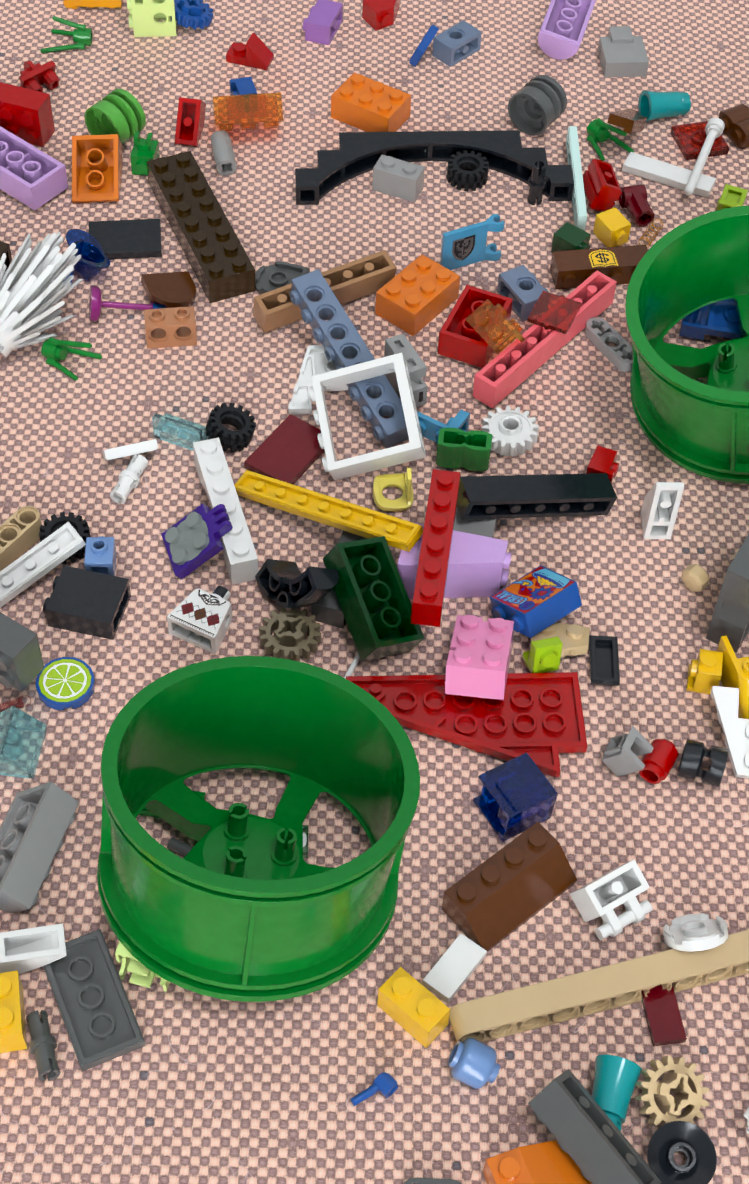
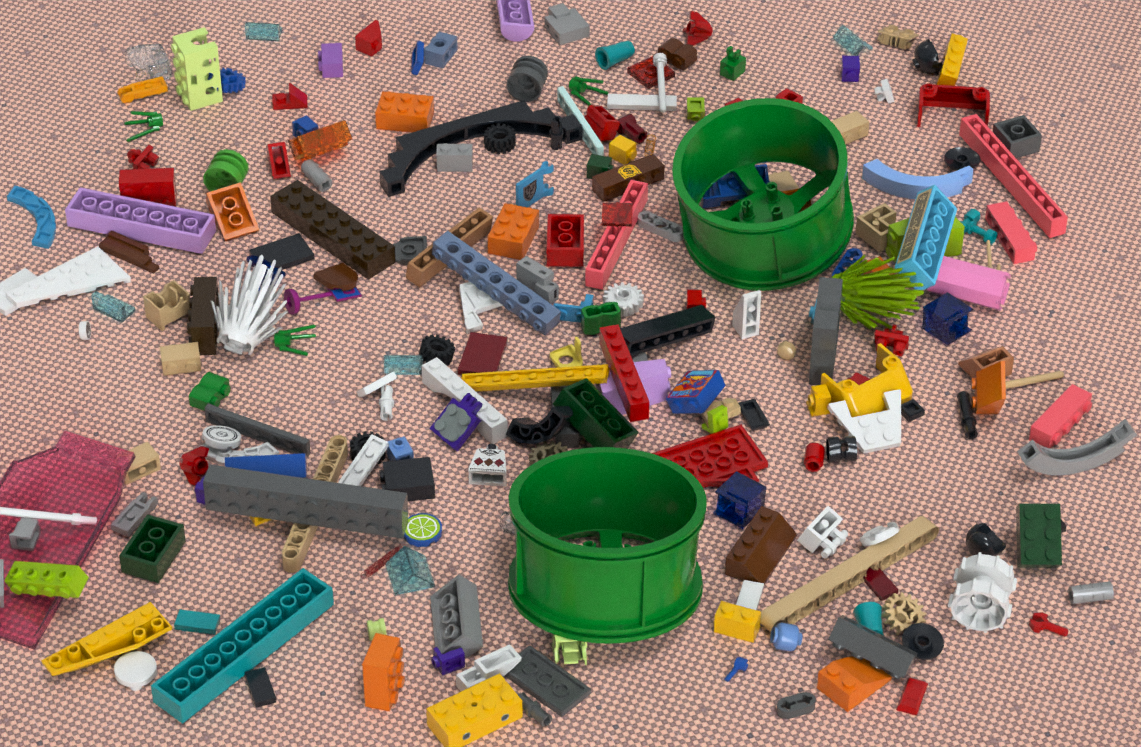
camera: 20 degrees left, 10 degrees down
(143, 151) = (260, 192): green brick -> none
(170, 327) = (355, 301): nougat brick -> none
(378, 459) = (547, 341): white window -> none
(479, 657) = (679, 431): bright pink piece -> none
(494, 327) = (583, 234): clear orange bracket -> none
(522, 288) = (582, 204): sand blue brick -> none
(623, 752) = (793, 457): light grey window -> none
(628, 119) = (598, 71): reddish brown piece -> none

